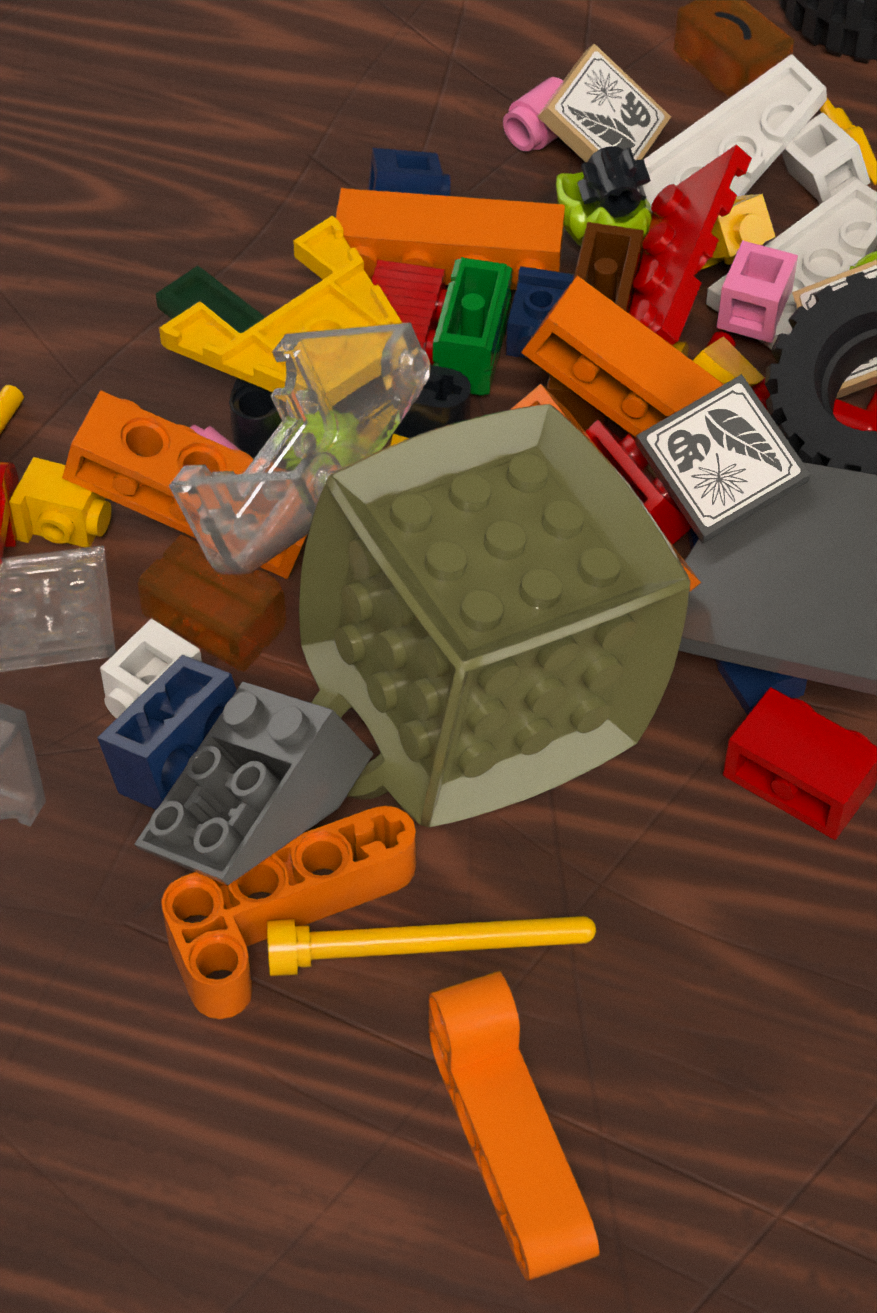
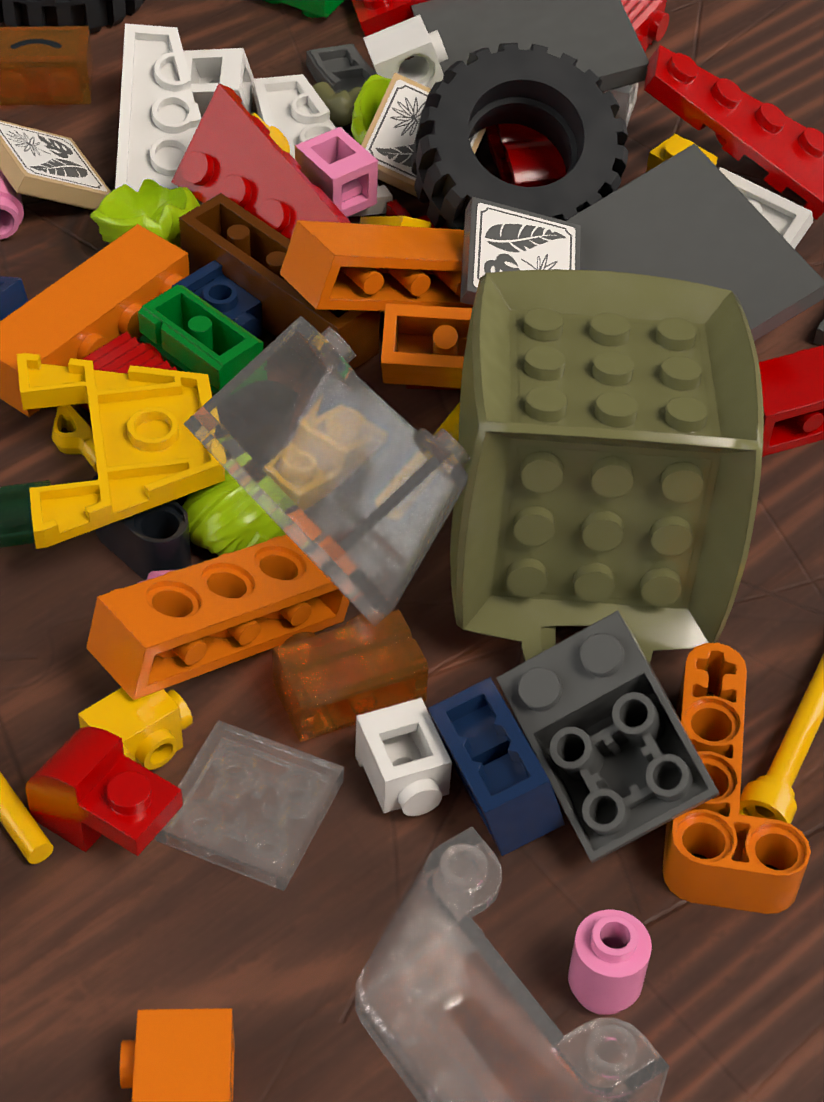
camera: 60 degrees left, 5 degrees down
(39, 897) = (609, 961): none -> bright pink brick
(614, 180) = (146, 182): black gear -> none

